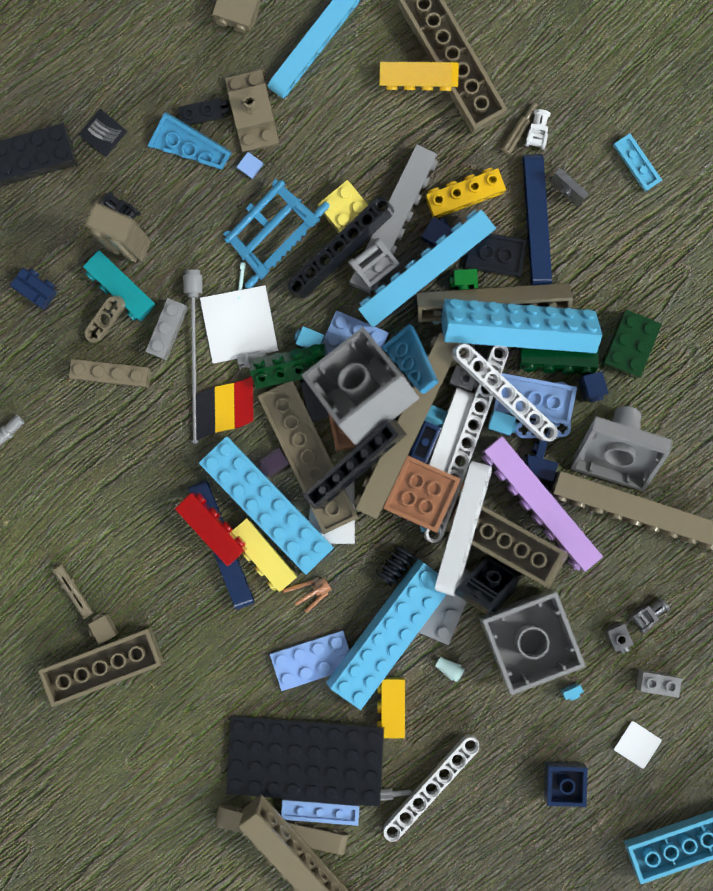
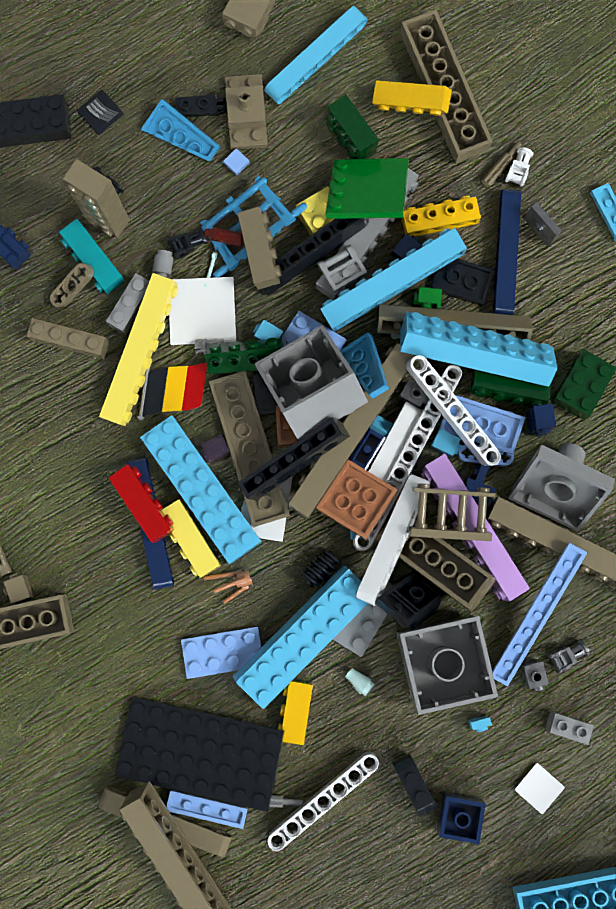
camera: 10 degrees right, 5 degrees down
(183, 375) = (139, 349): none -> light yellow brick
(213, 257) = (186, 243): none -> black connector
(250, 246) = (225, 236): none -> clear red cylinder
(287, 254) = (258, 247): none -> dark tan brick
(362, 117) = (351, 129): none -> dark green brick
(388, 178) = (367, 188): none -> green plate
(508, 513) = (460, 531): none -> dark tan fence
(516, 760) = (414, 785): none -> black brick
(614, 578) = (538, 613): none -> light blue plate

